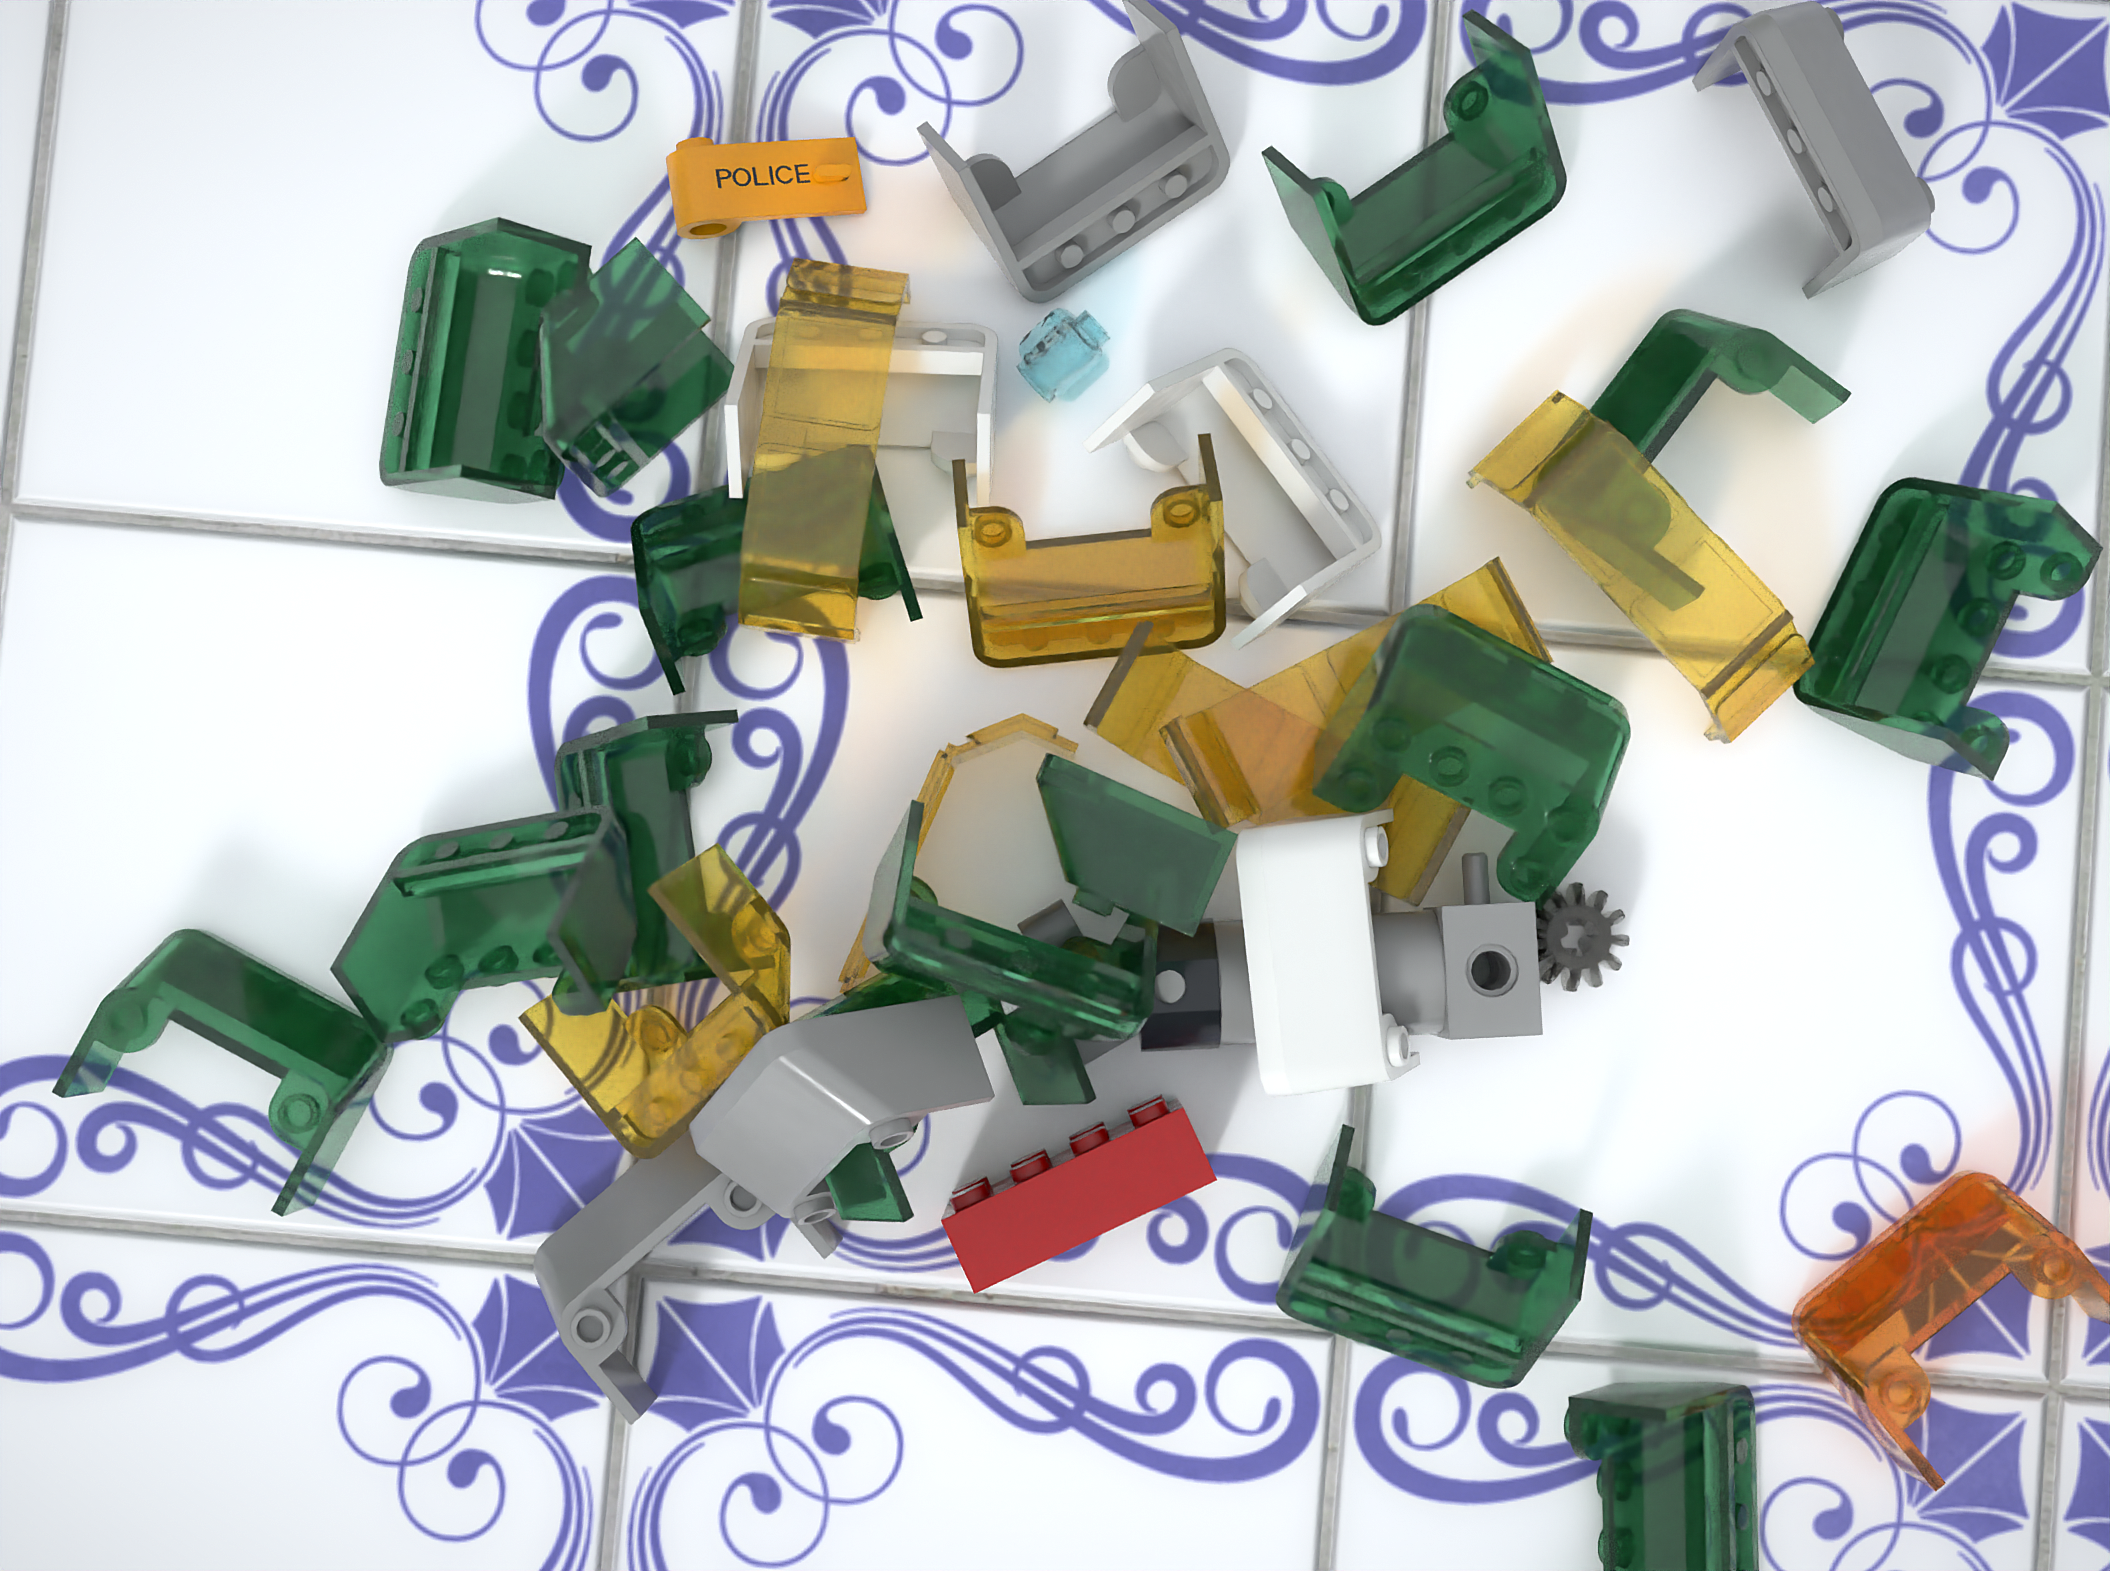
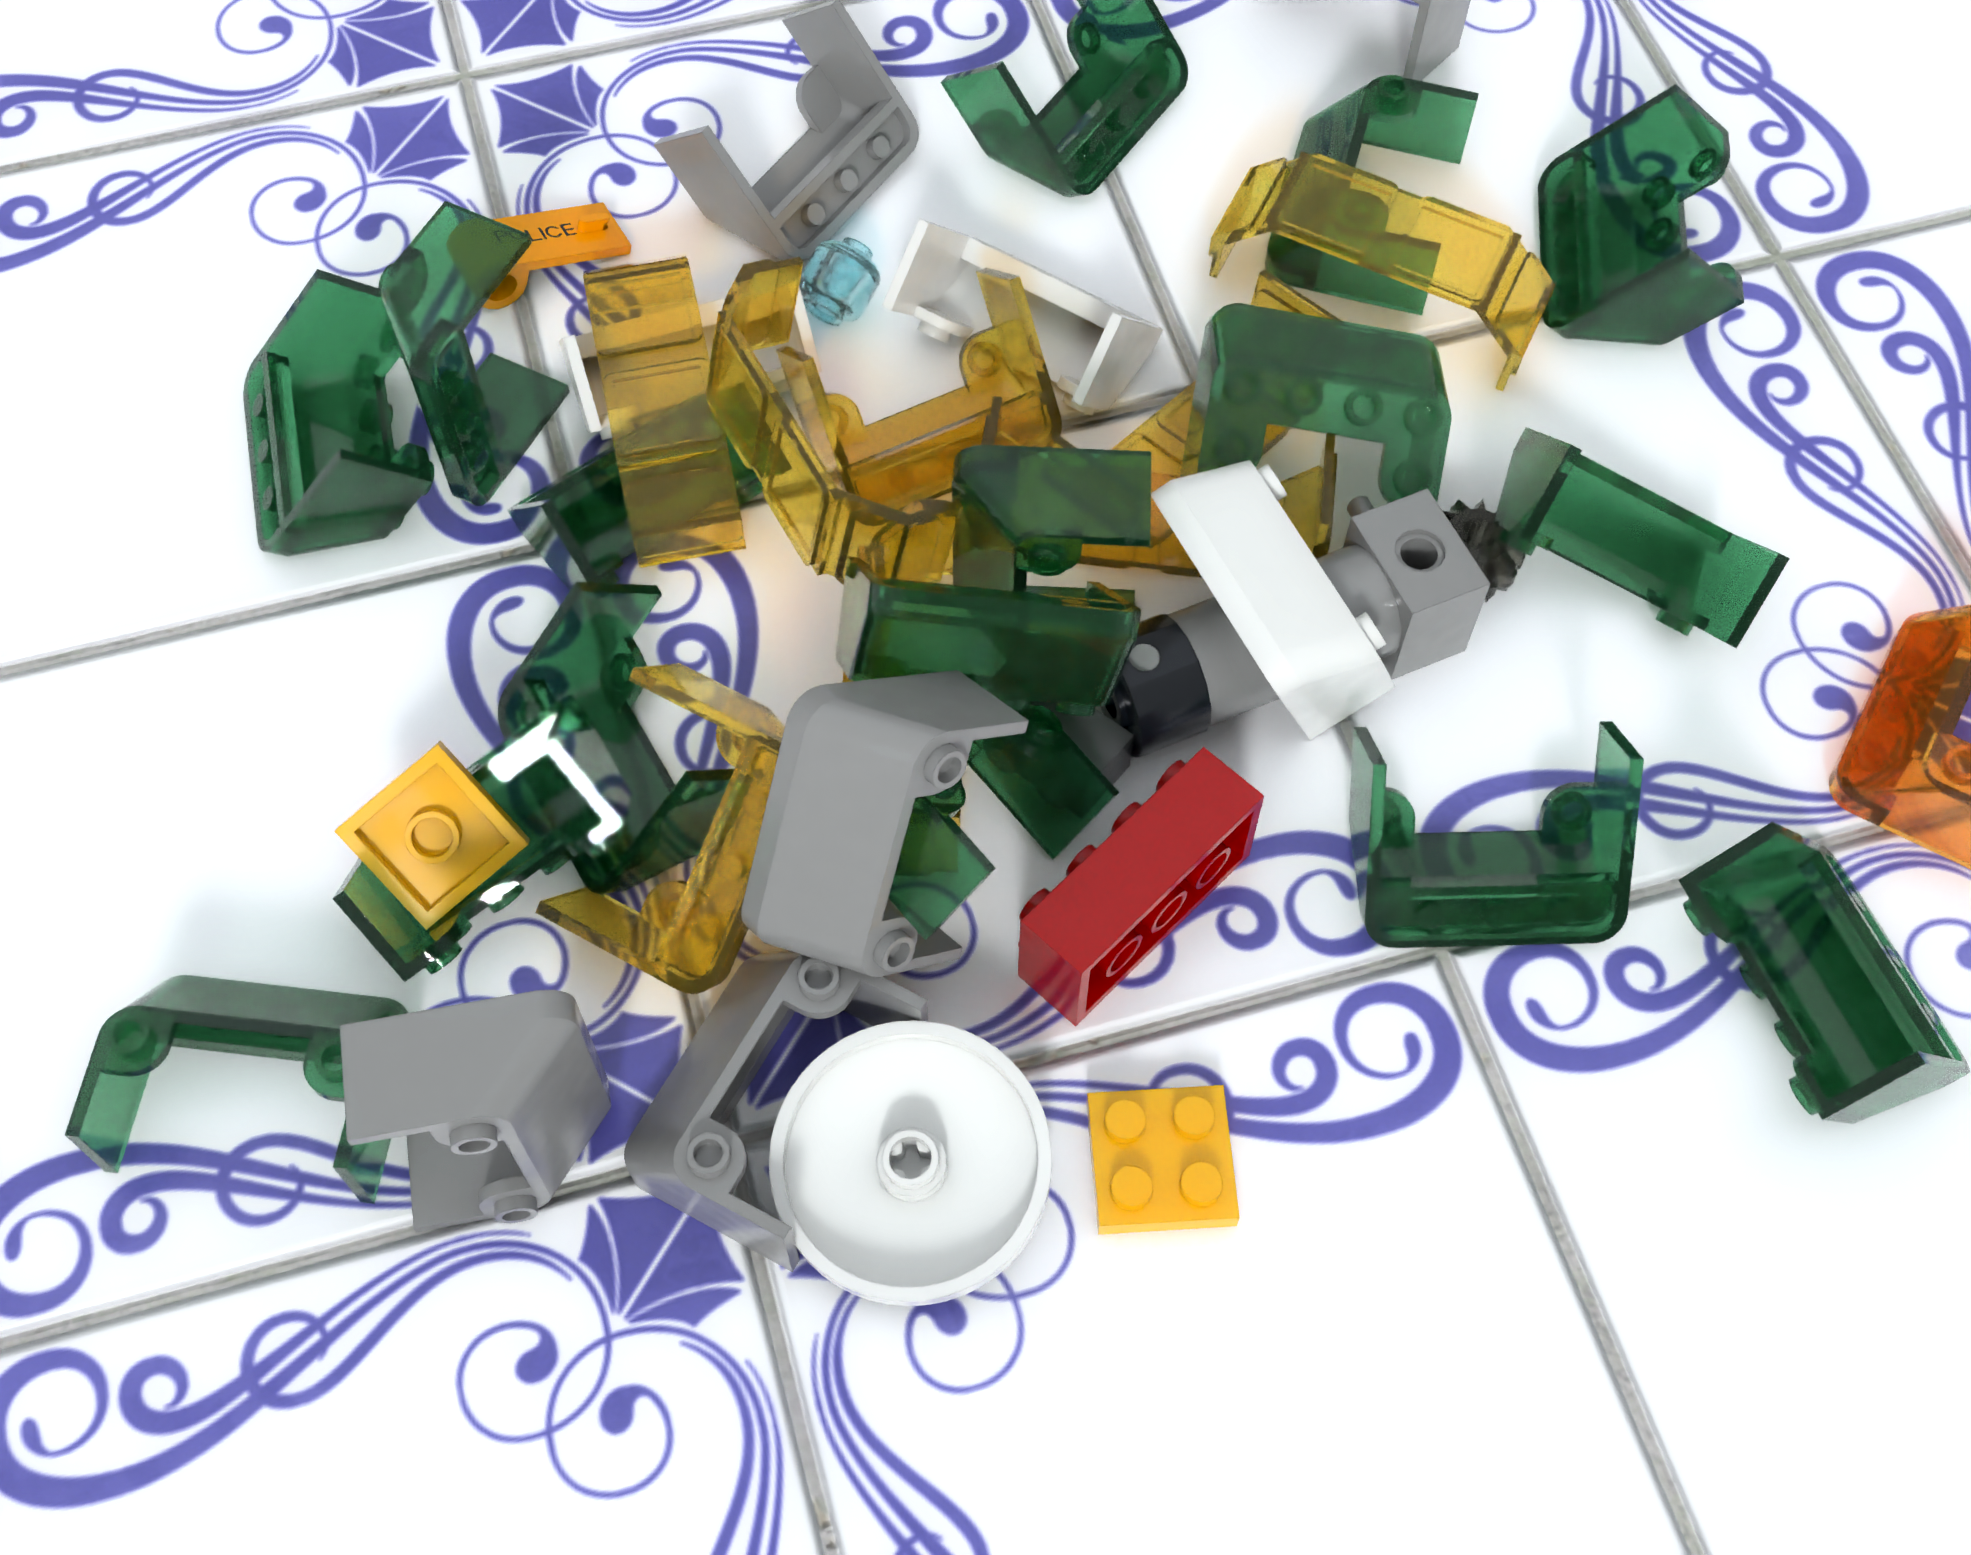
camera: 25 degrees left, 25 degrees down
(391, 1226) = (488, 1097): none -> light grey windscreen
(446, 905) = (432, 835): none -> yellow plate
(774, 1372) = (911, 1162): none -> white dish
(882, 610) = (811, 509): none -> clear yellow windscreen
(1000, 1435) = (1161, 1160): none -> yellow plate
(1741, 992) = (1634, 539): none -> clear green windscreen

